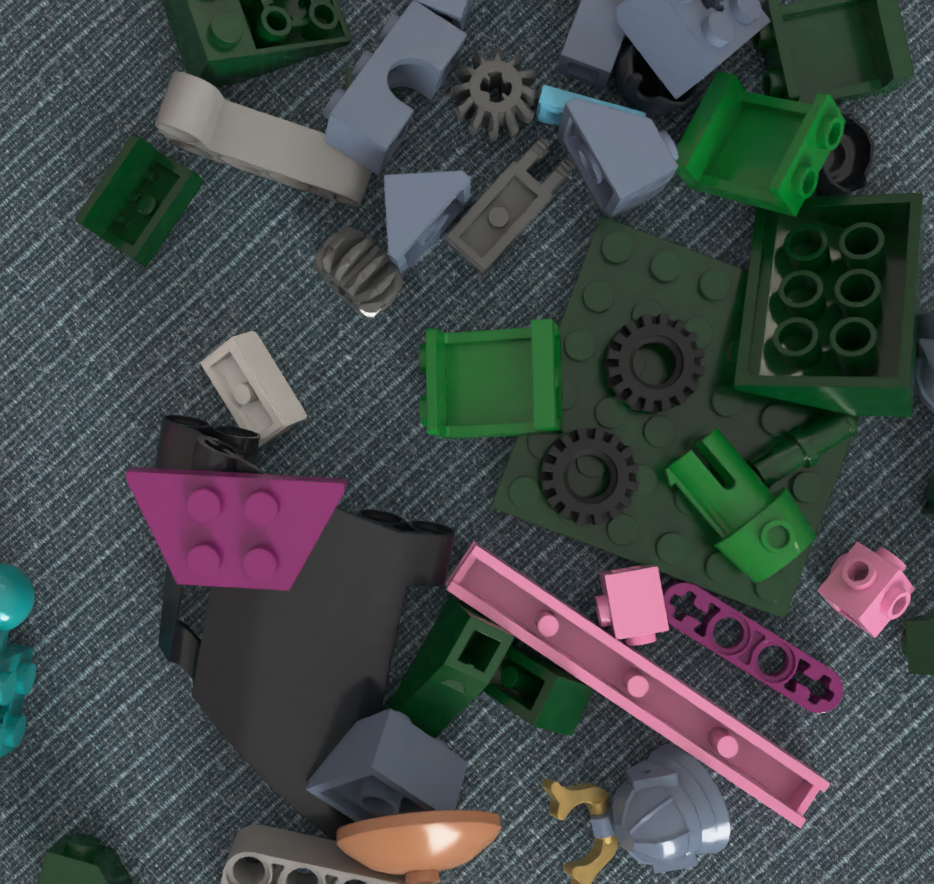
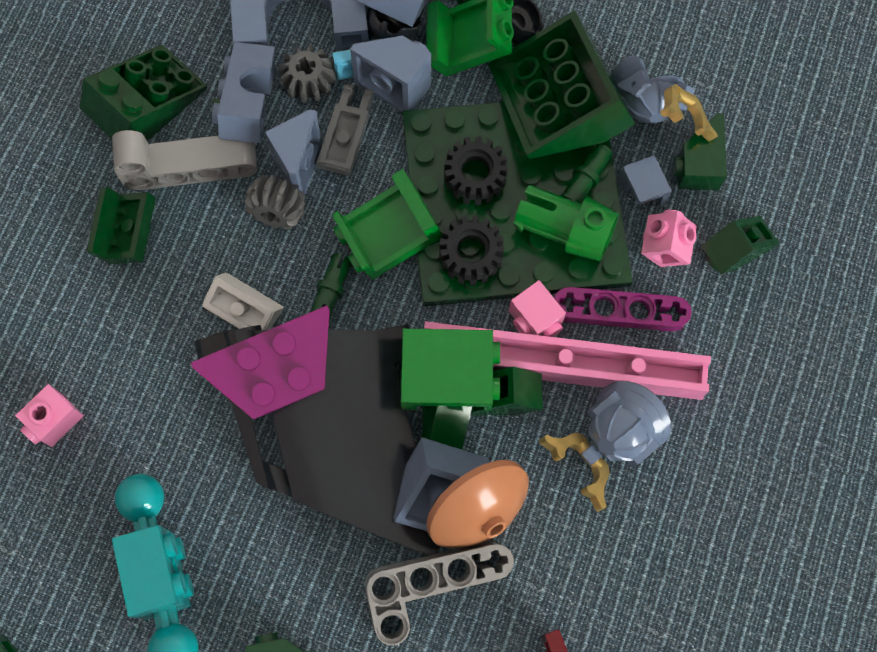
camera: 30 degrees left, 15 degrees down
(376, 427) = (331, 287): none -> dark green pin
(471, 640) = (449, 368): none -> green panel
(881, 491) = (645, 181): none -> sand blue panel

